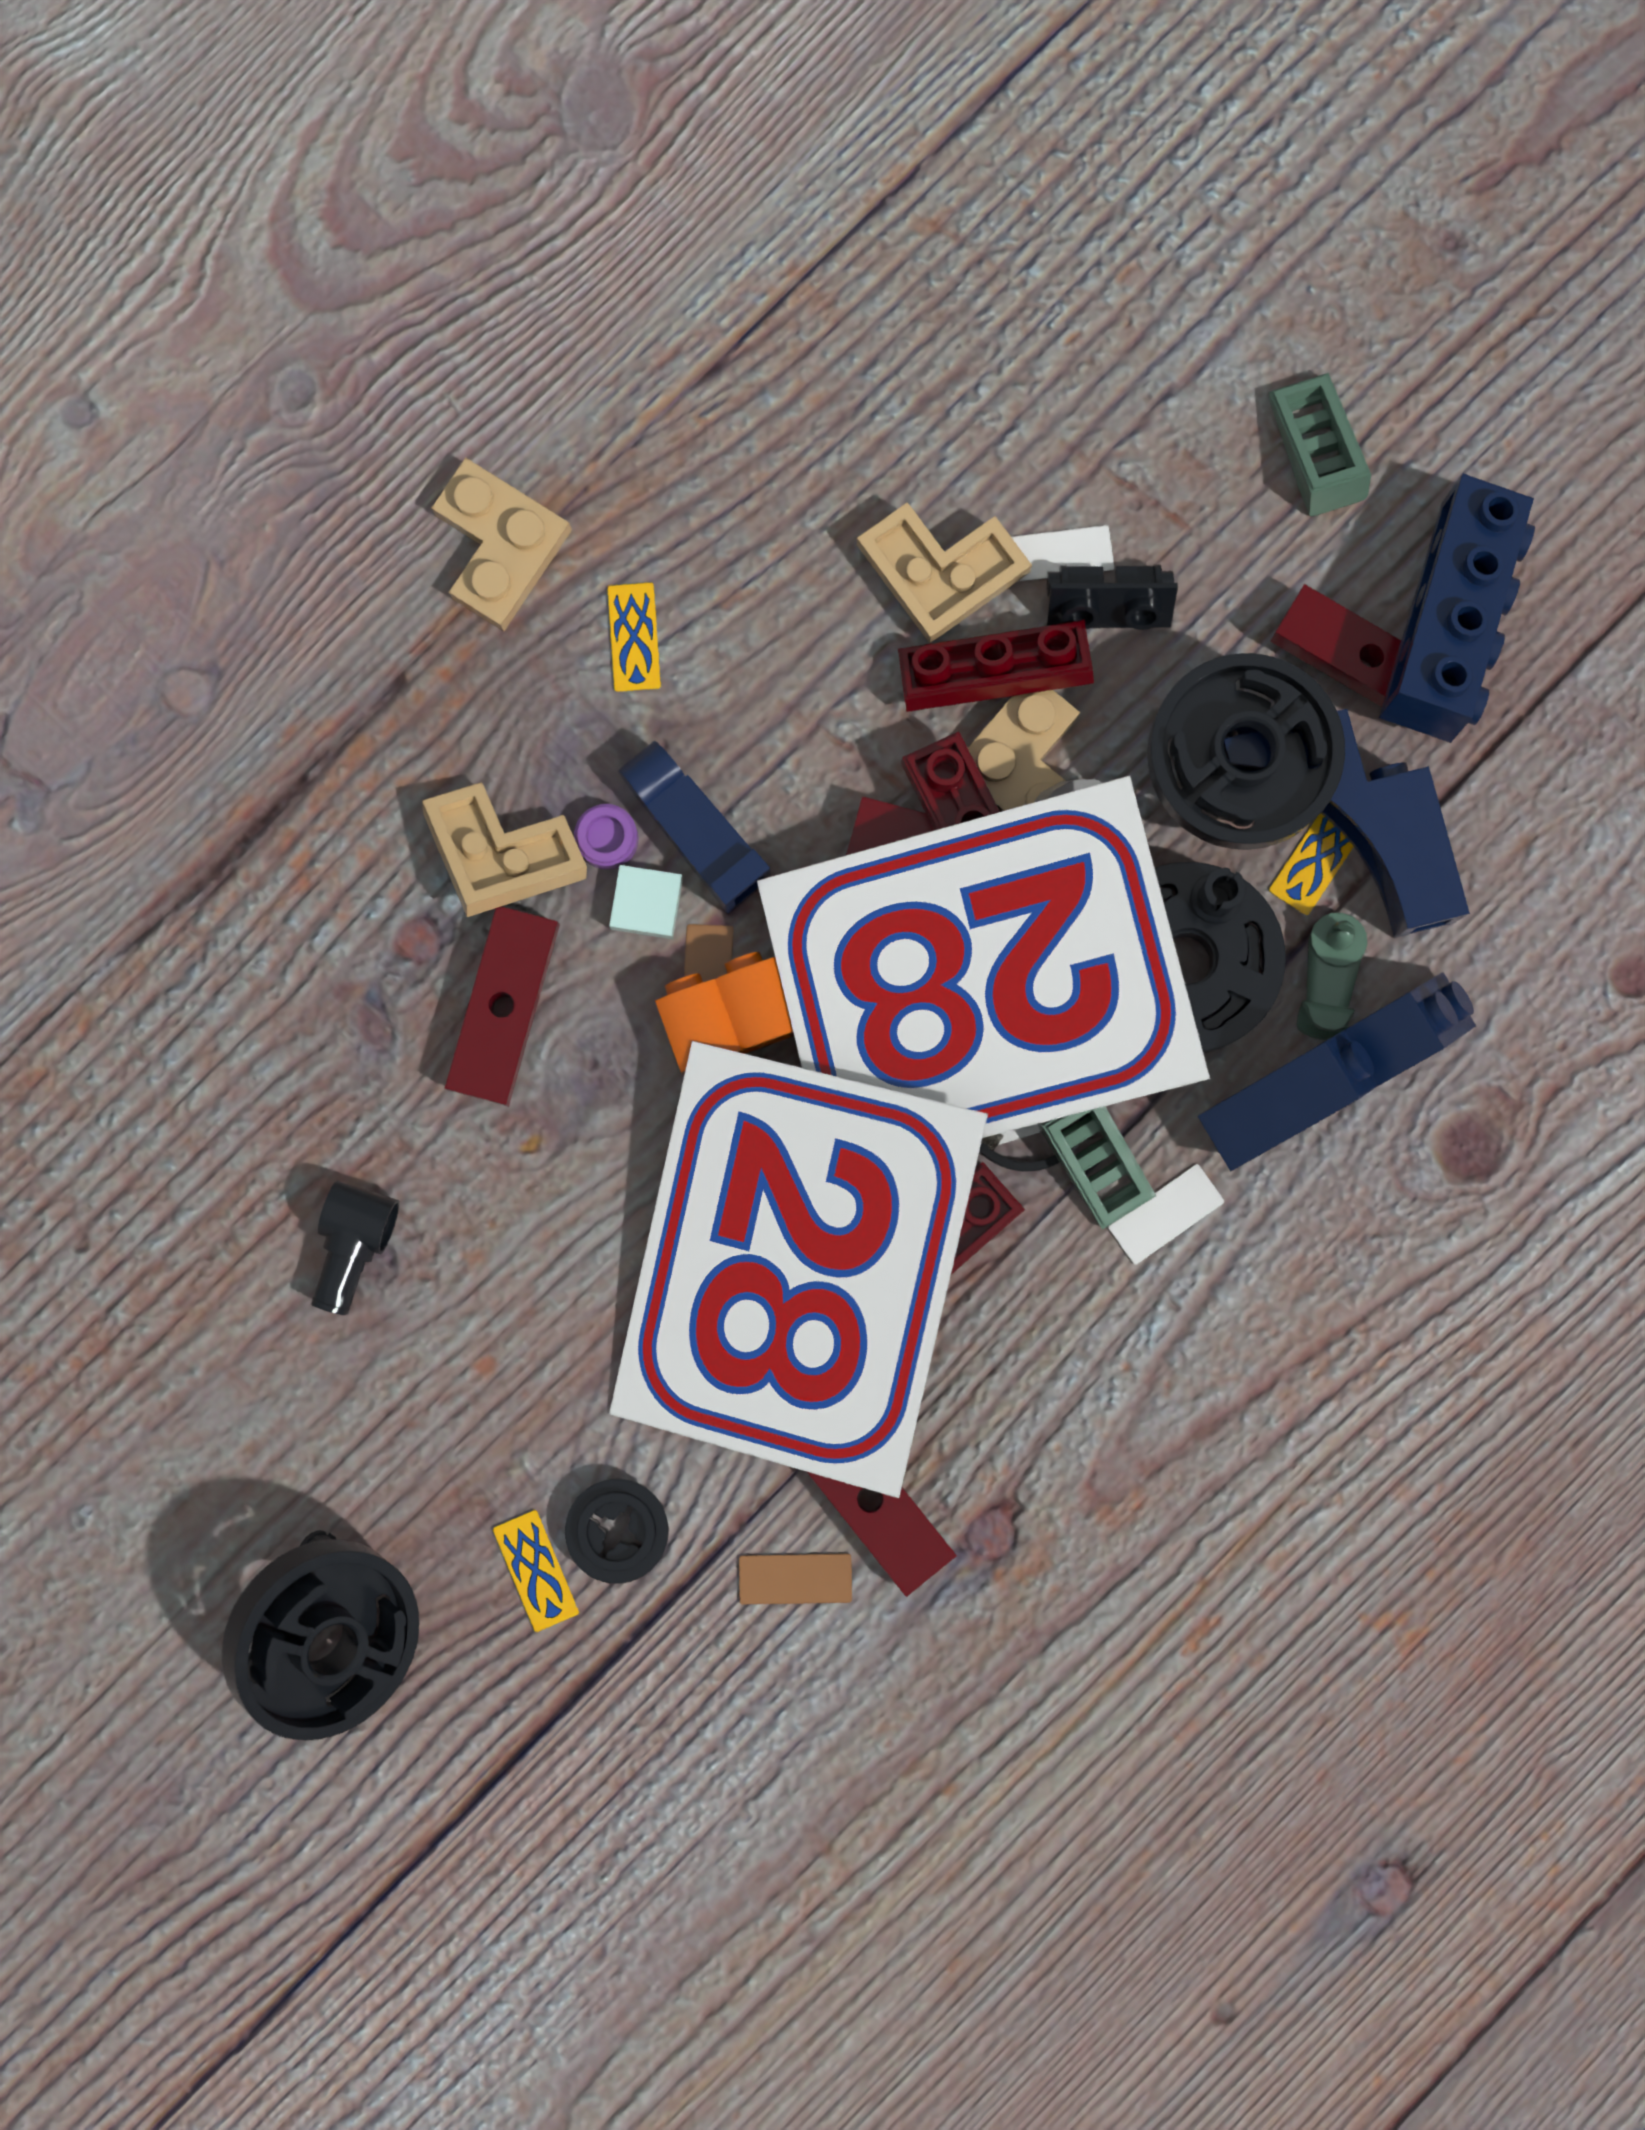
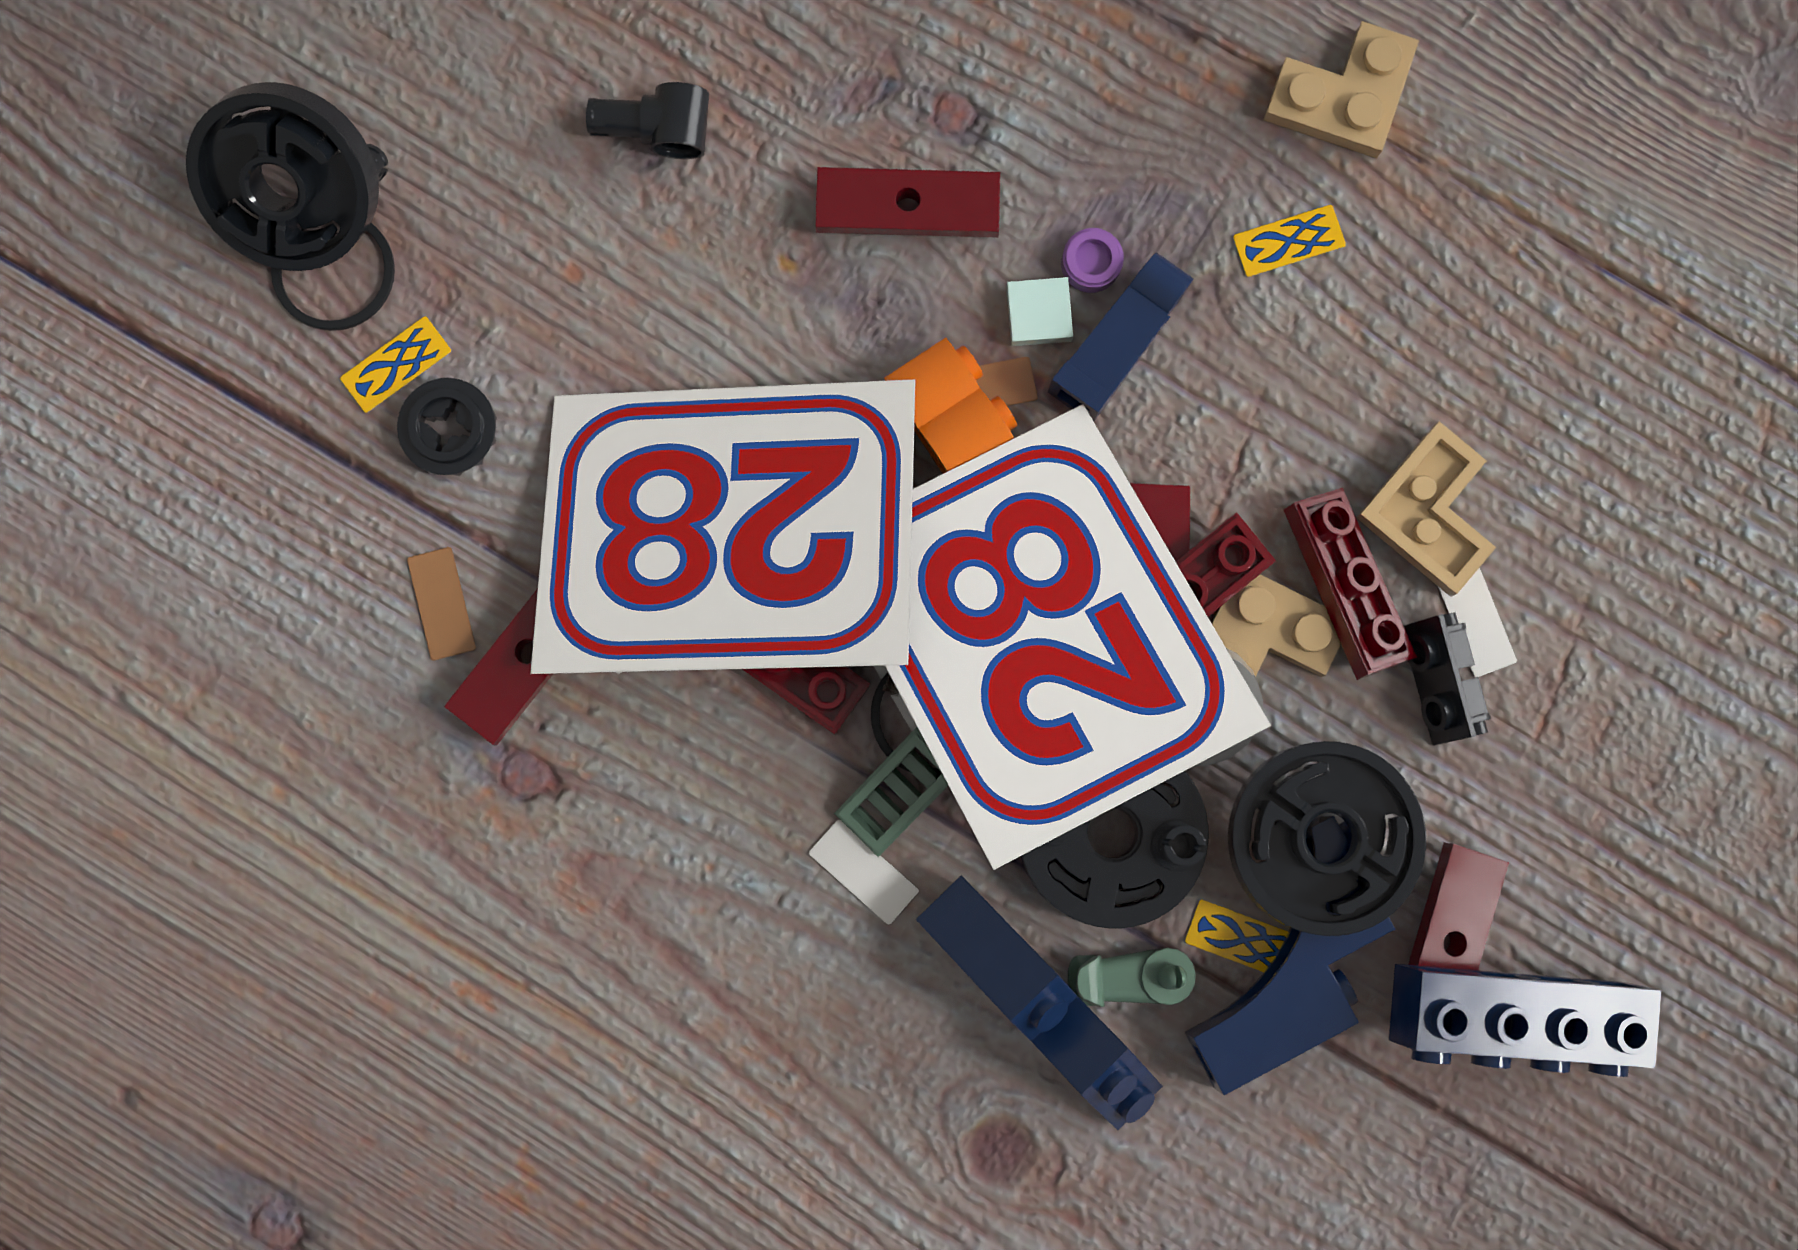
camera: 70 degrees right, 0 degrees up
(468, 1577) = (359, 318): none -> black piece
(494, 866) = (1037, 168): tan plate -> none
(1332, 481) = (1620, 871): sand green slope -> none

